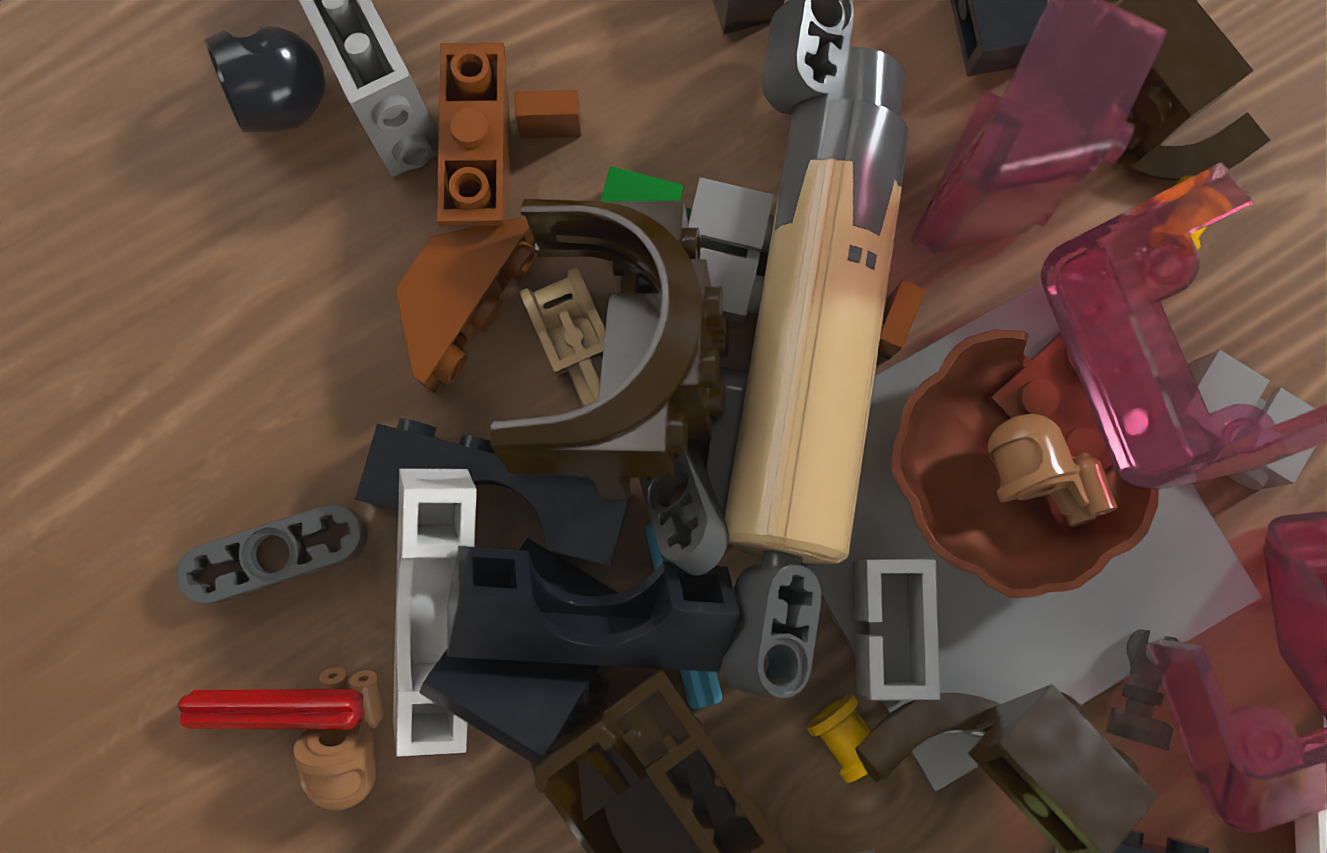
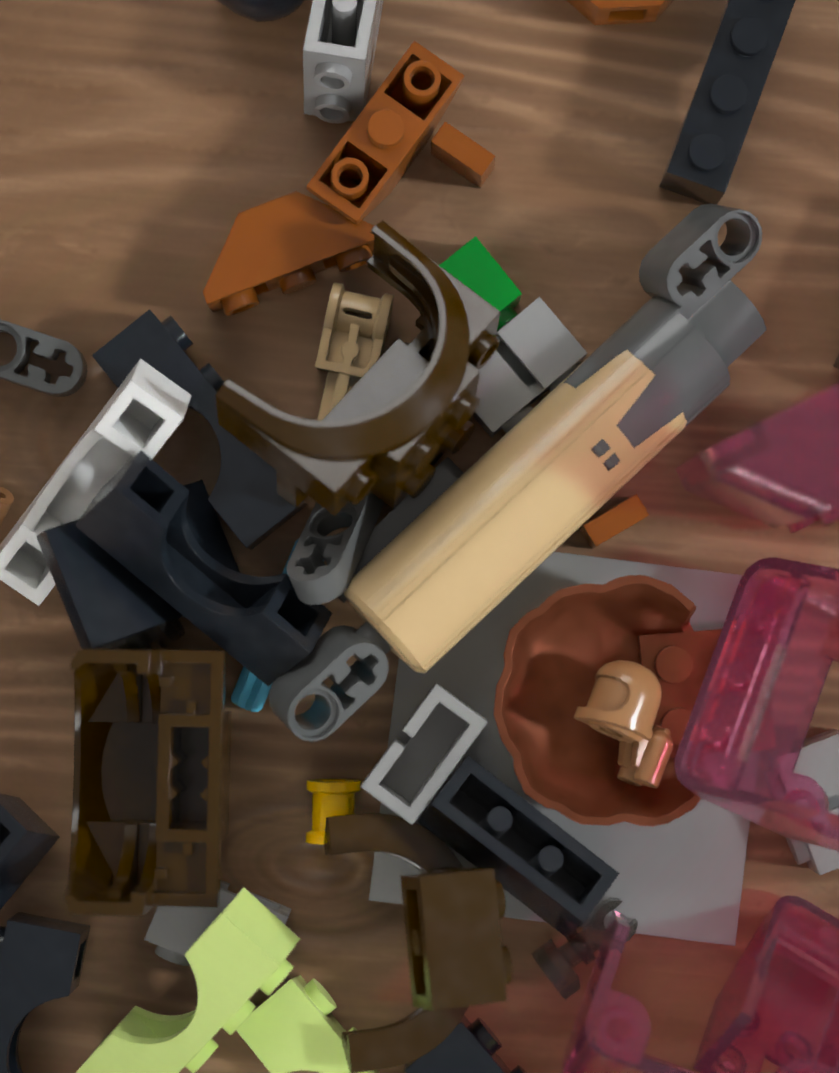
camera: 50 degrees right, 5 degrees up
(1037, 645) = (525, 848): none -> black brick

